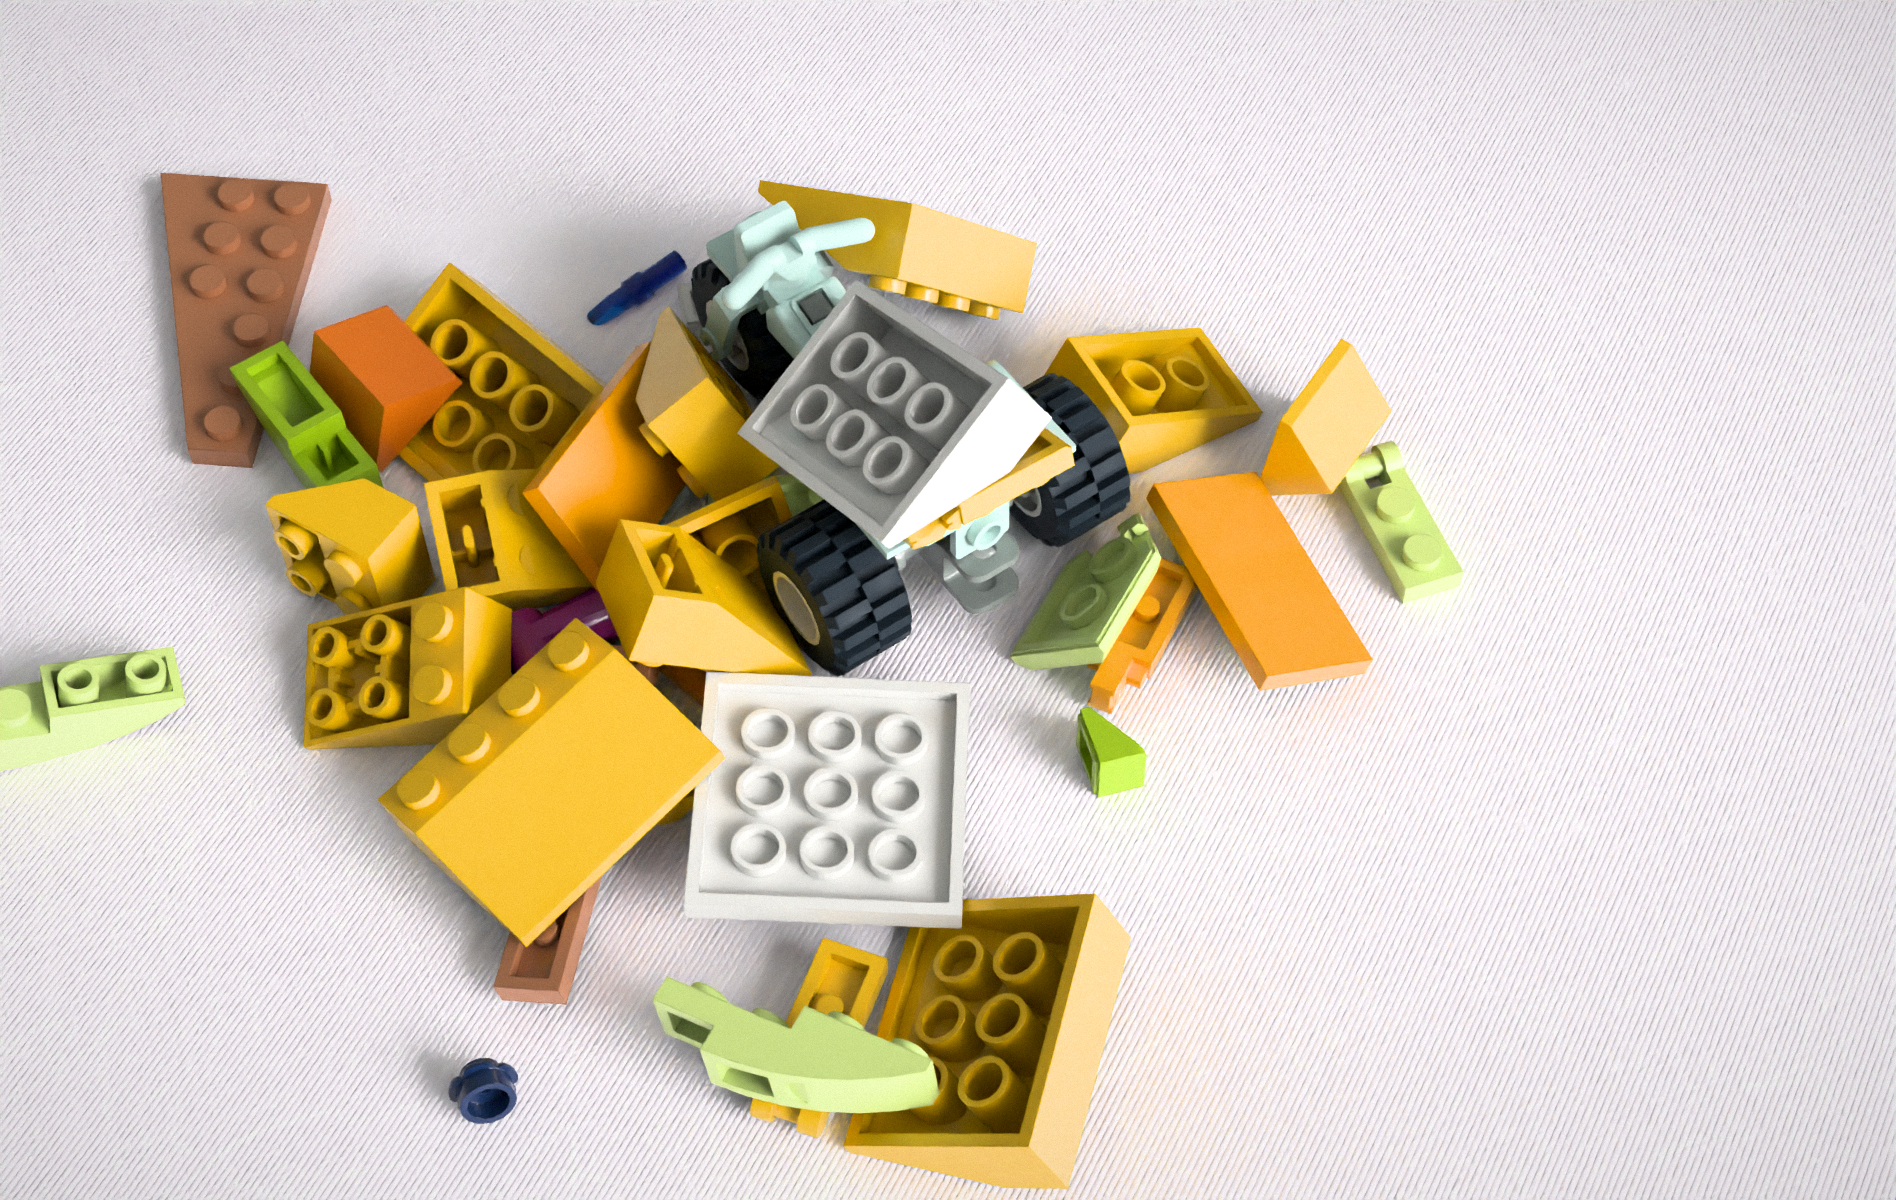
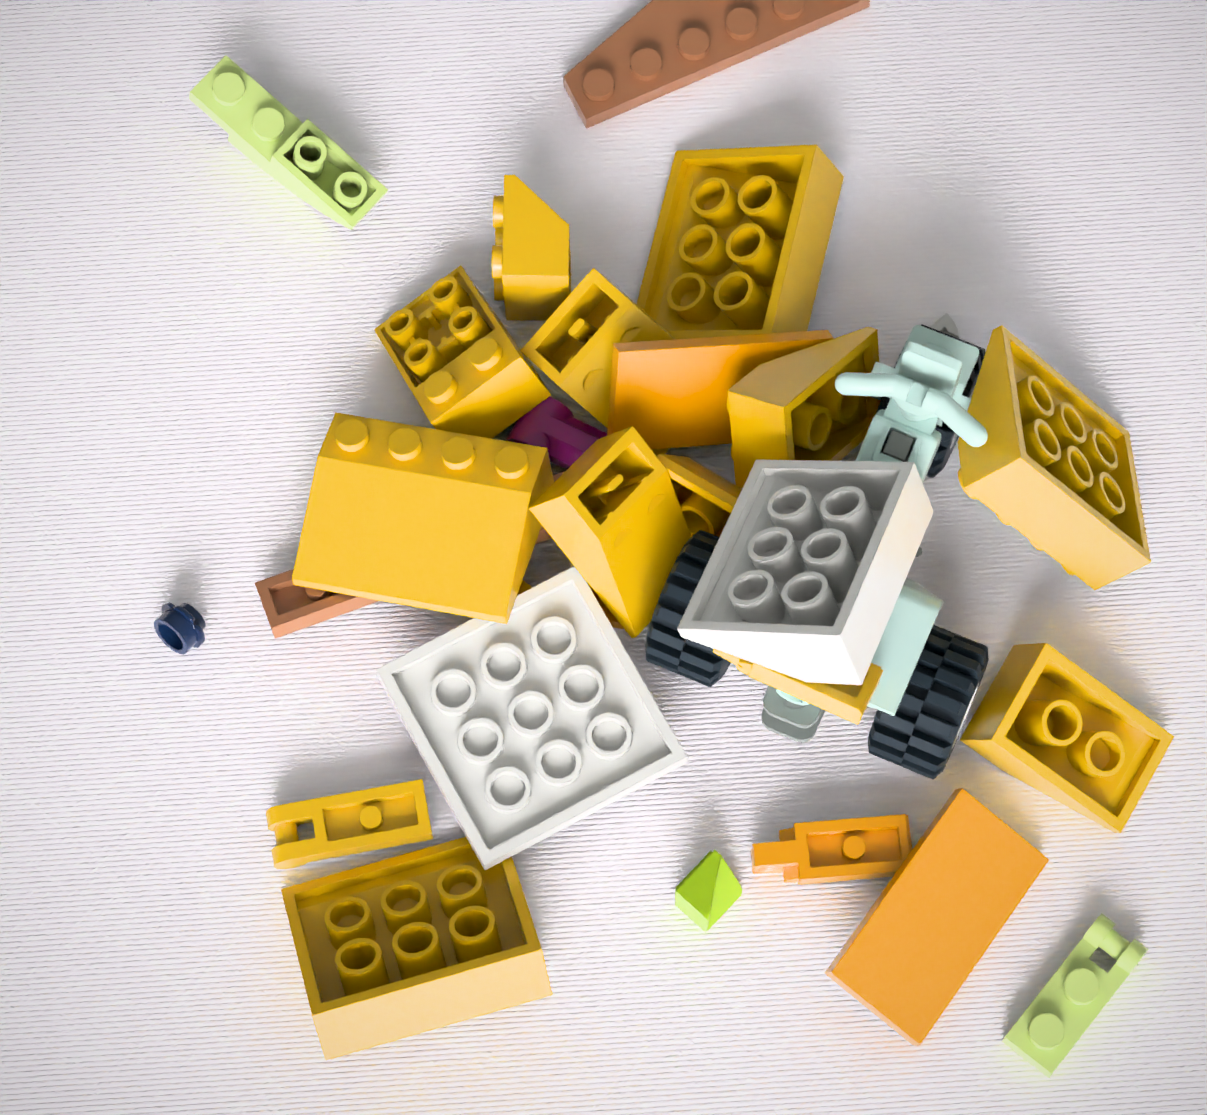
camera: 60 degrees right, 15 degrees up
(302, 419) = (626, 147): lime slope -> none
(380, 379) = (700, 166): orange slope -> none
(637, 288) = (927, 286): clear blue piece -> none
(814, 1066) = (302, 819): yellowish green slope -> none
(1090, 602) = (834, 802): yellowish green tile -> none
(1325, 427) = (1109, 893): yellow slope -> none

